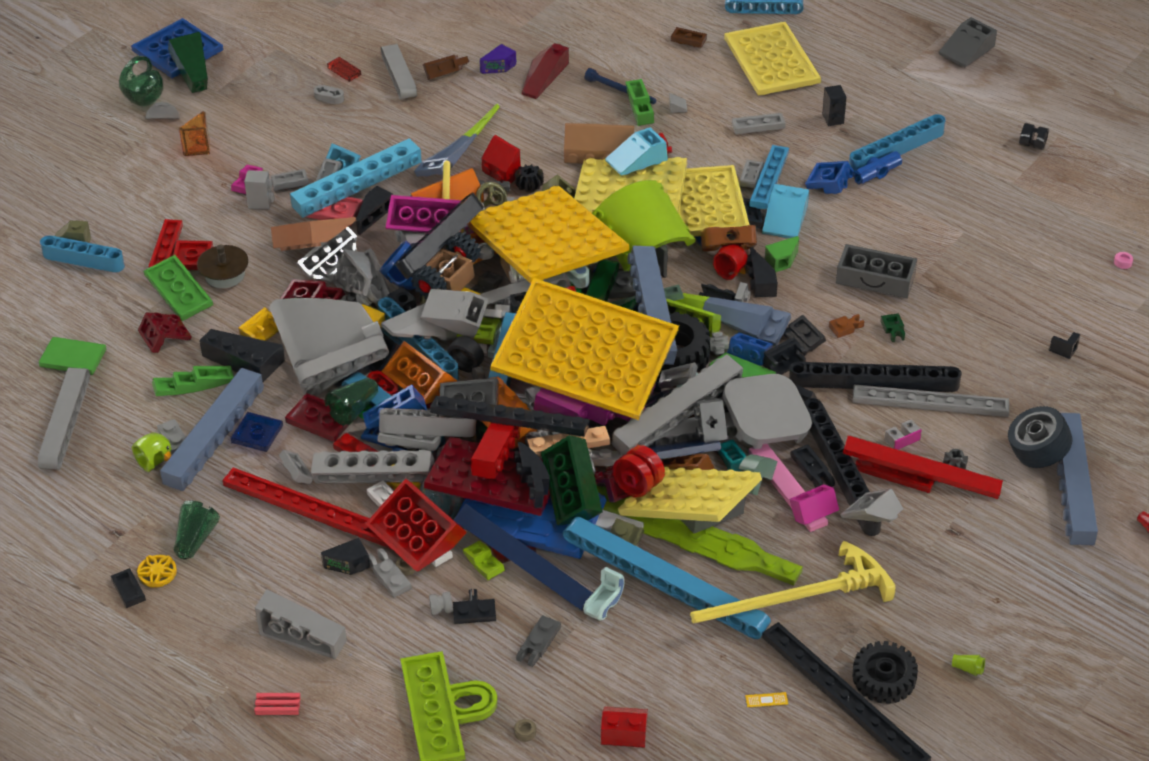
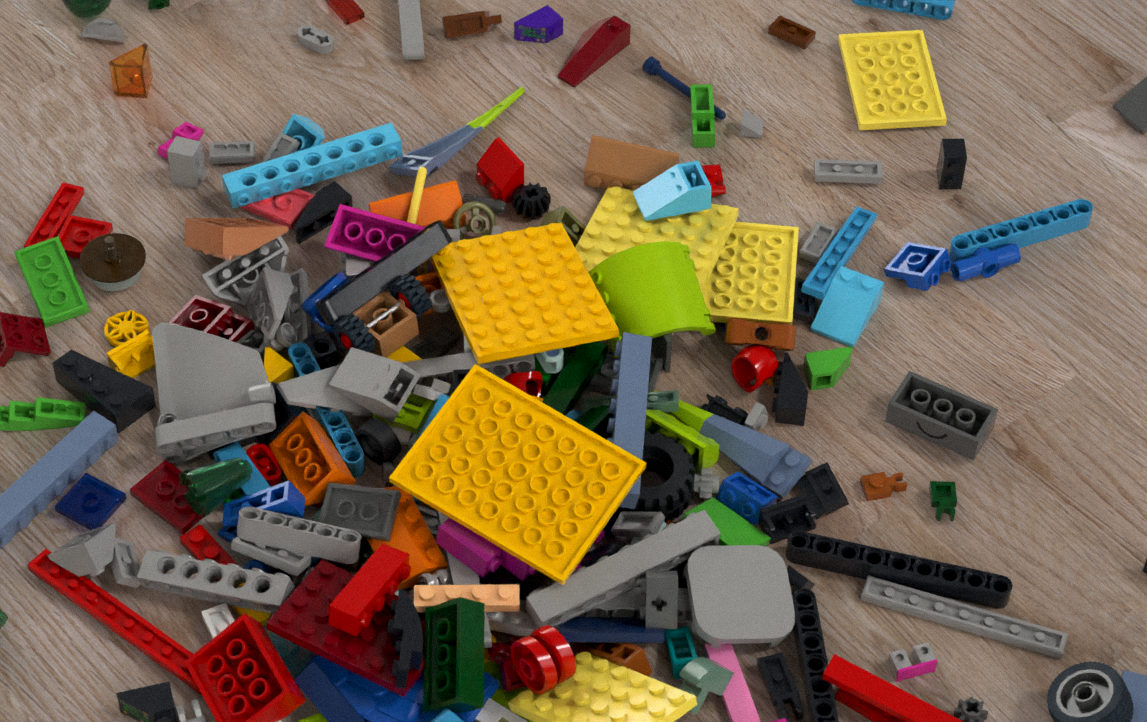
camera: 10 degrees right, 5 degrees up
(244, 312) = (125, 329): none -> yellow wheel
(267, 463) = (87, 551): none -> light grey slope
(510, 416) = (399, 550): black plate -> none

